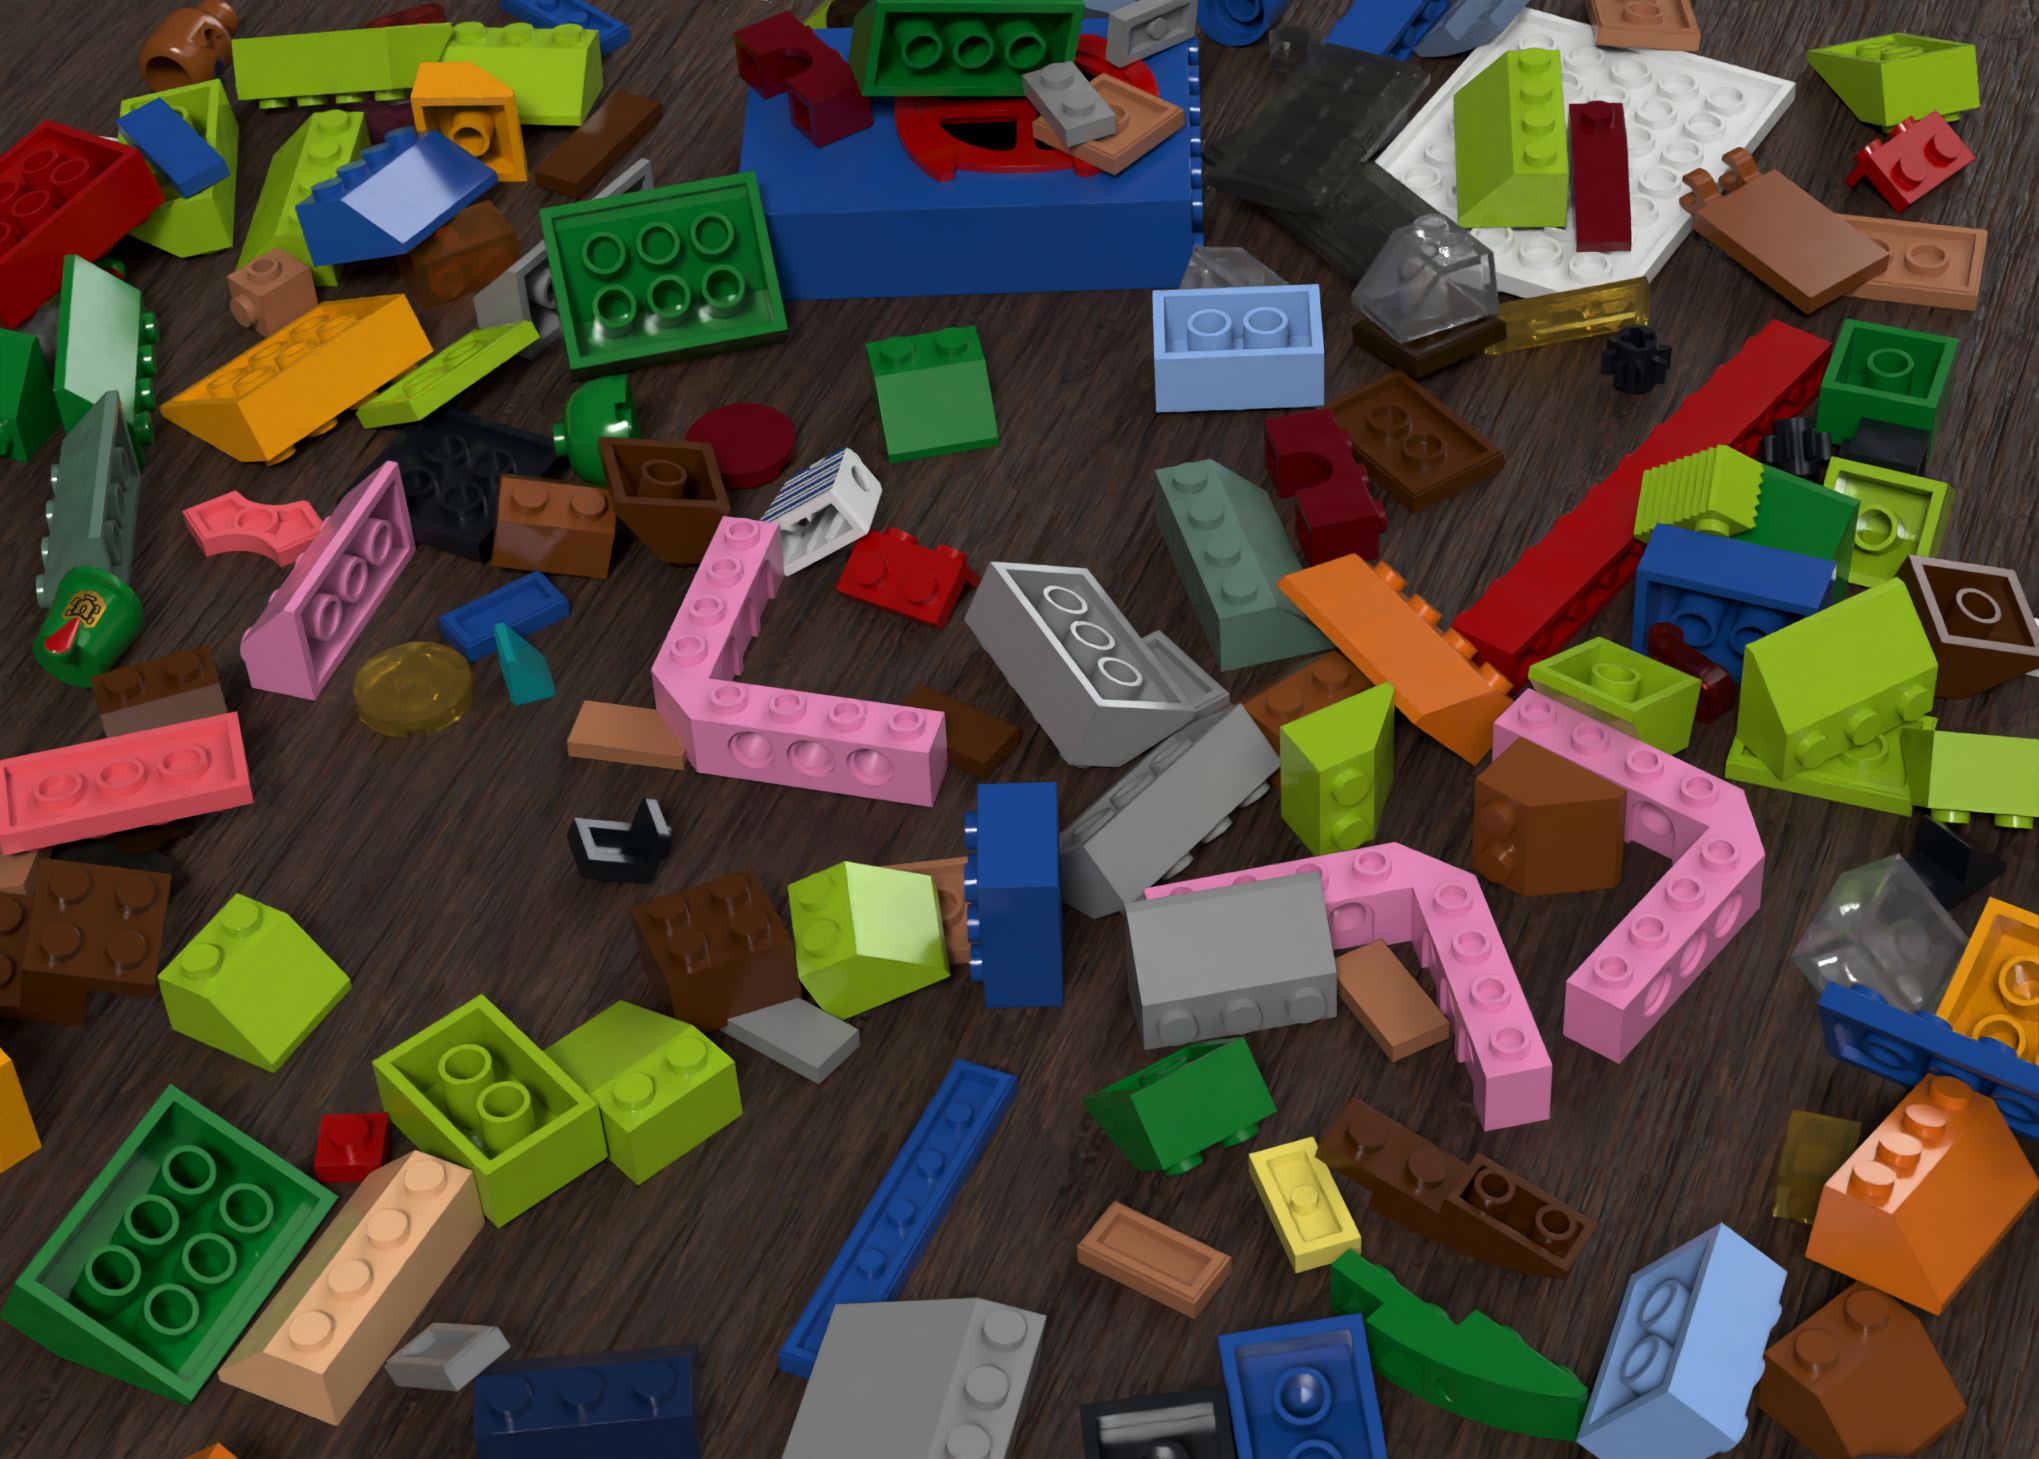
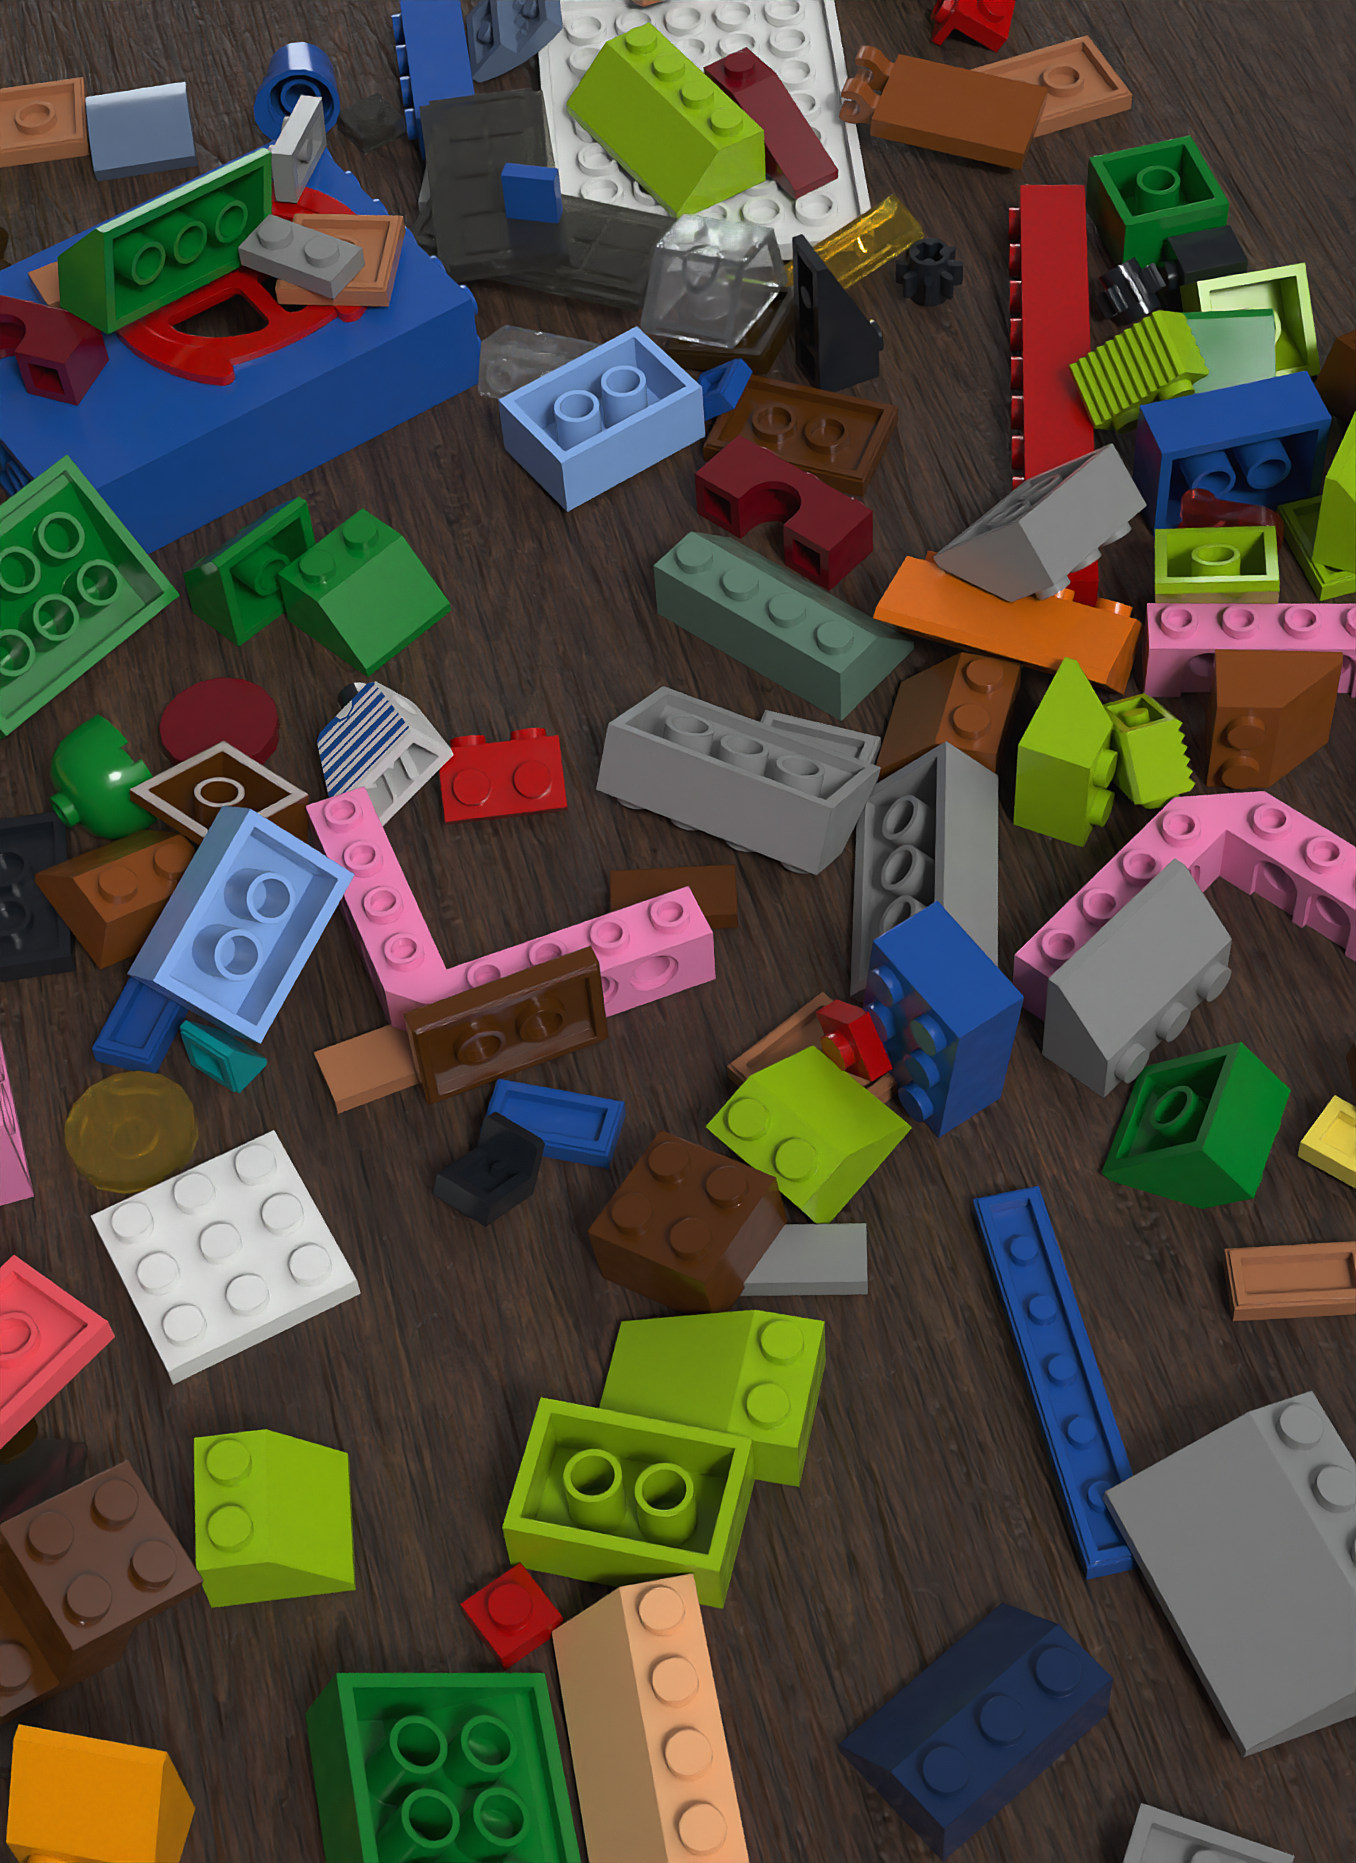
camera: 35 degrees left, 10 degrees up
(396, 805) = (225, 1256): none -> white plate
(446, 1356) = (824, 1766): light grey tile -> none
(588, 568) = (241, 923): none -> light blue brick
(710, 839) = (569, 1123): none -> blue tile
(720, 742) = (507, 1025): none -> reddish brown tile
(842, 325) = (239, 582): none -> green slope
(949, 884) = (852, 1040): none -> red plate
(1322, 141) = (532, 193): none -> blue tile
(1361, 372) = (723, 387): none -> blue tile
(1389, 1001) = (1271, 940): nougat tile -> none
(1409, 796) = (1150, 751): none -> lime brick
(1484, 581) = (1047, 528): none -> light grey slope
(1492, 354) = (832, 335): none -> black slope

